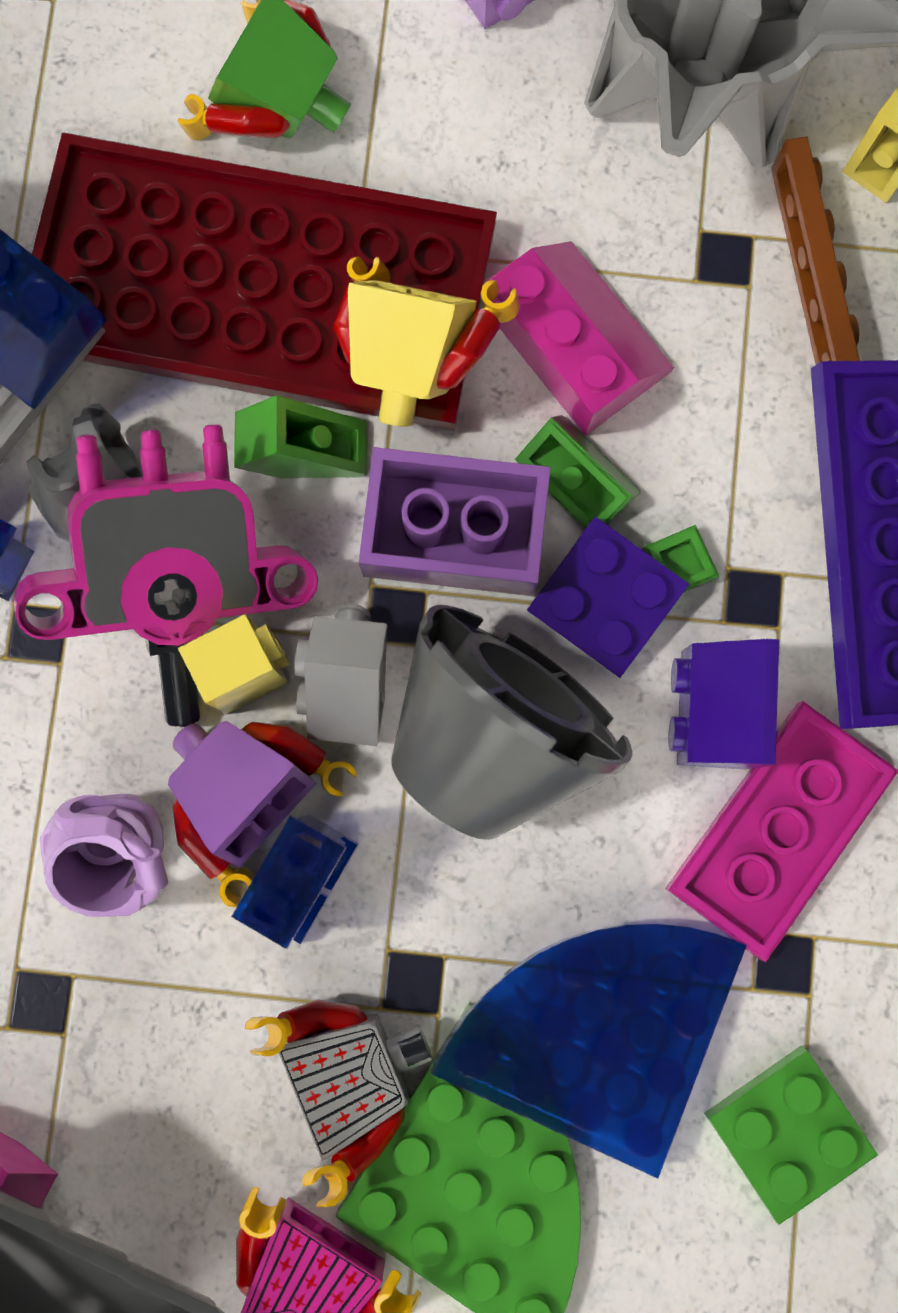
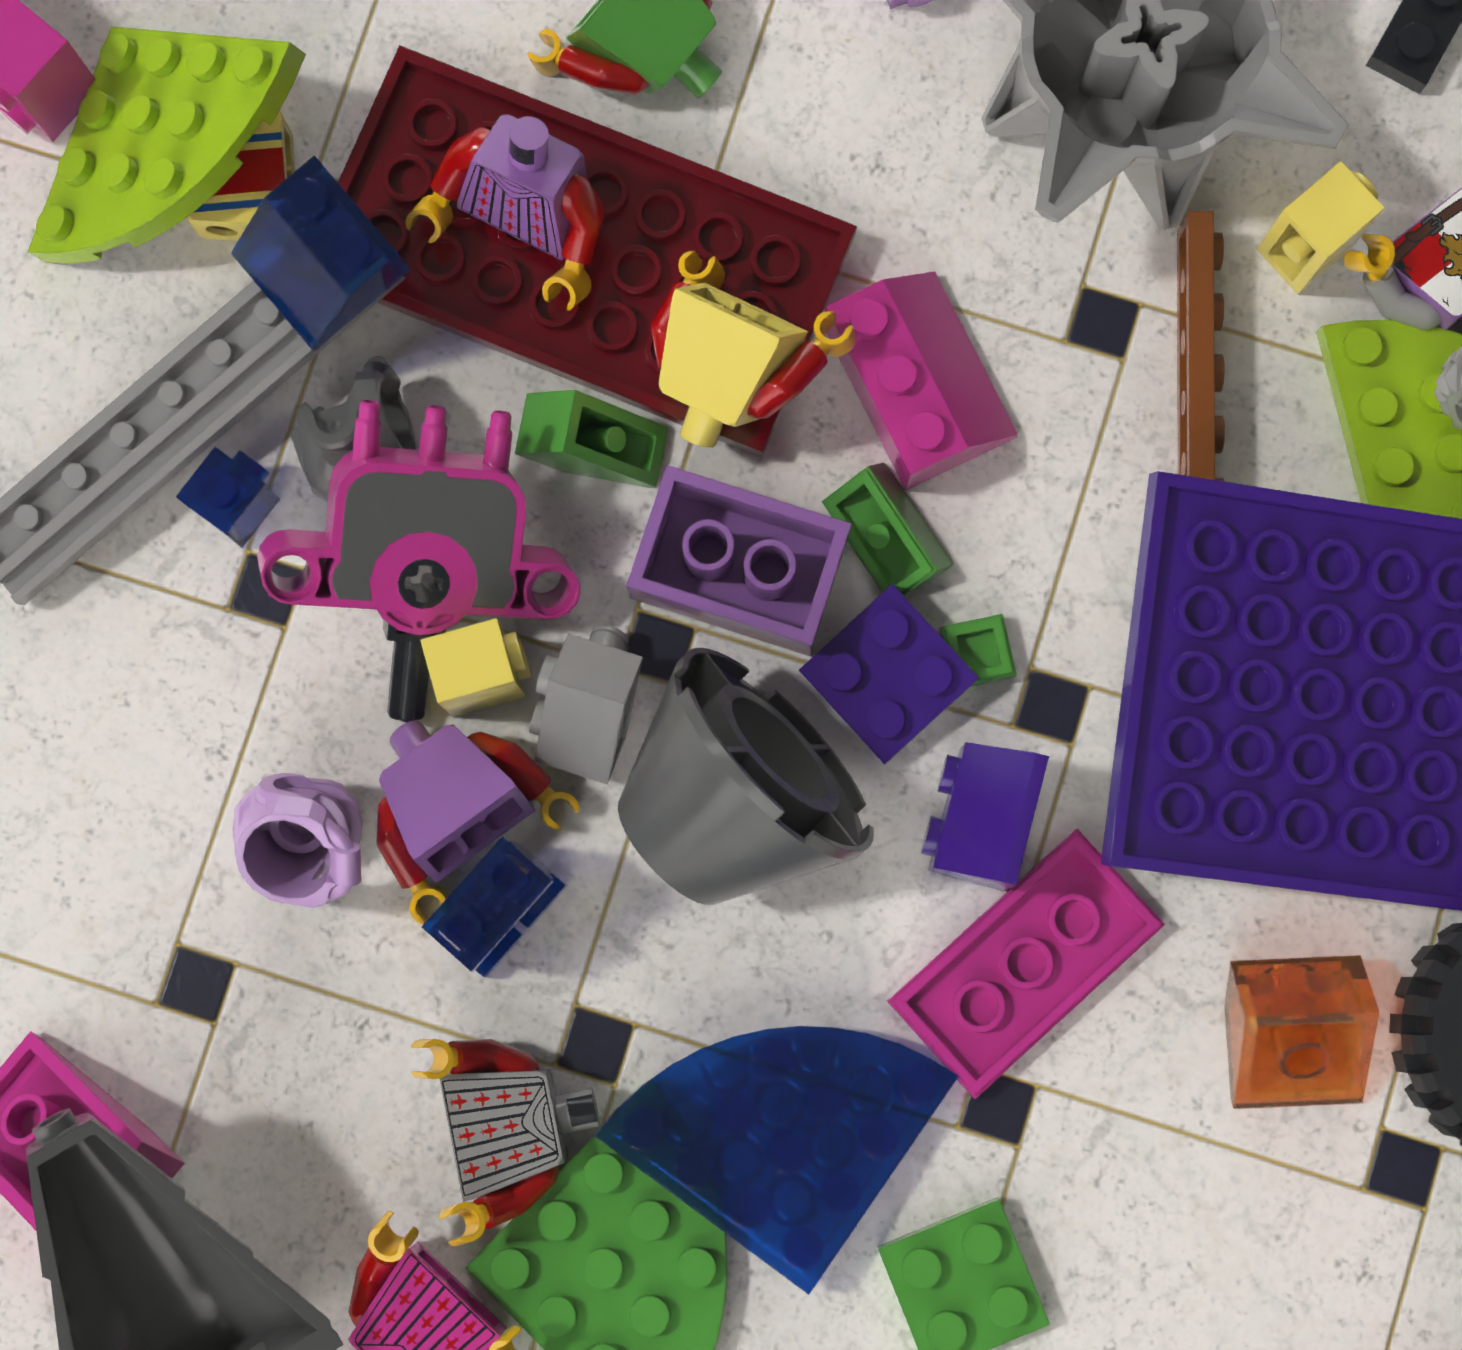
camera: 15 degrees right, 0 degrees up
(194, 225) = (525, 187): none -> torso

